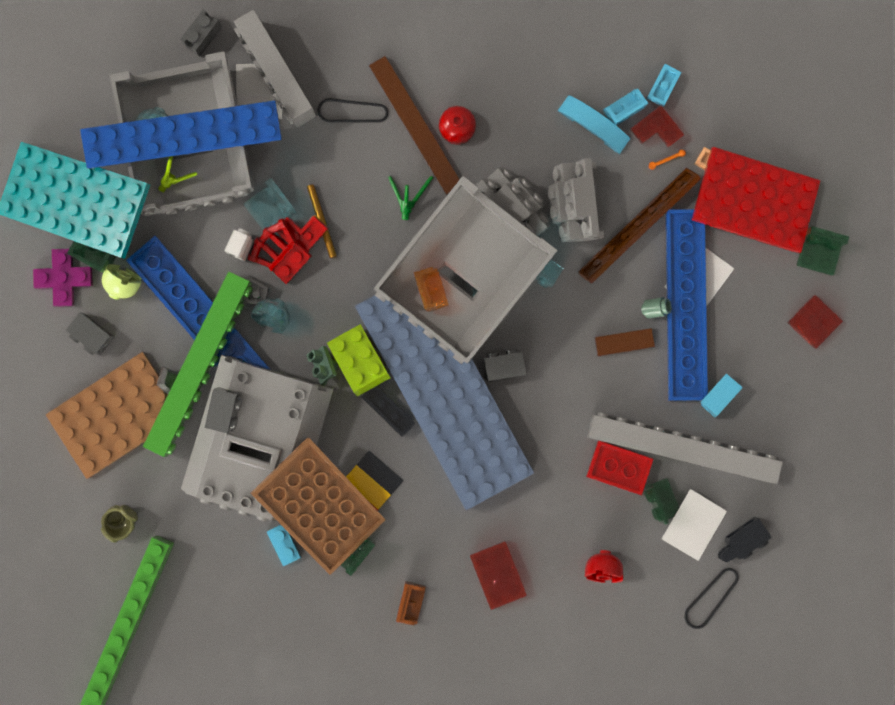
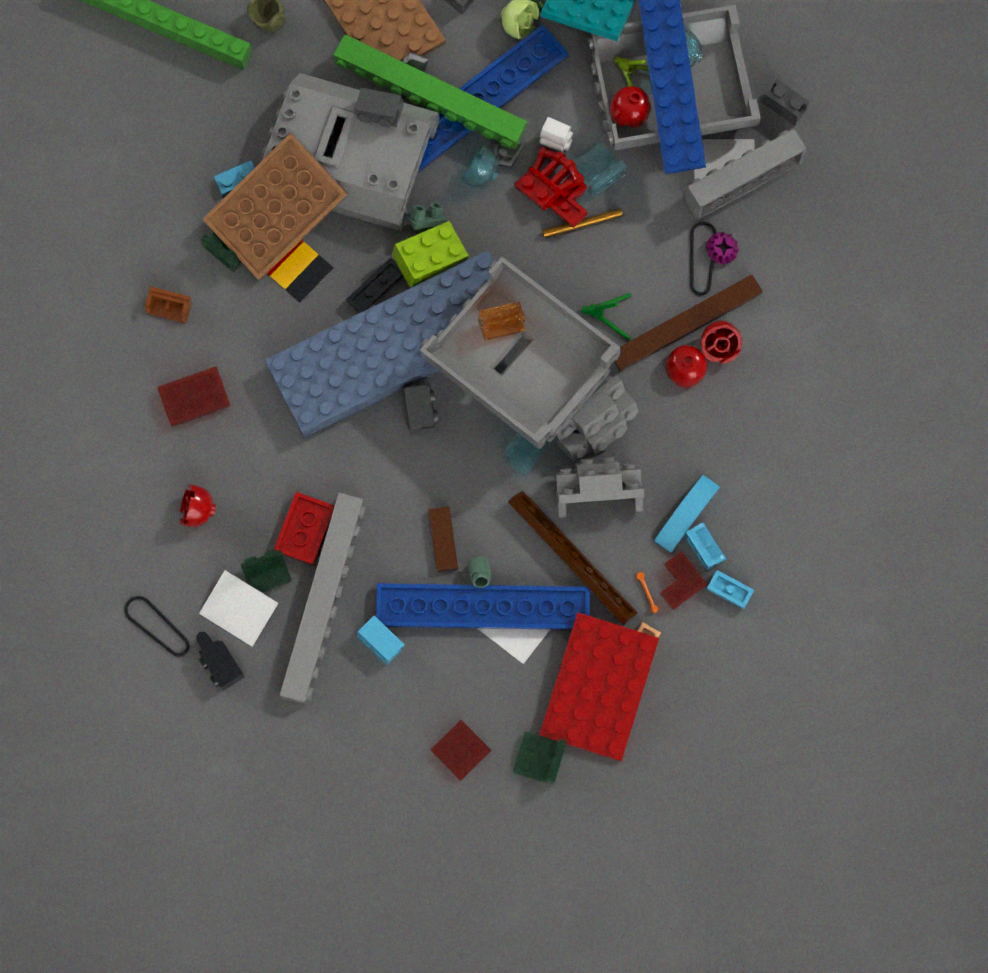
camera: 90 degrees right, 10 degrees down
(212, 174) = (630, 107): none -> red cylinder
(349, 98) = (716, 253): none -> magenta gear
(437, 91) = (721, 342): none -> red cylinder

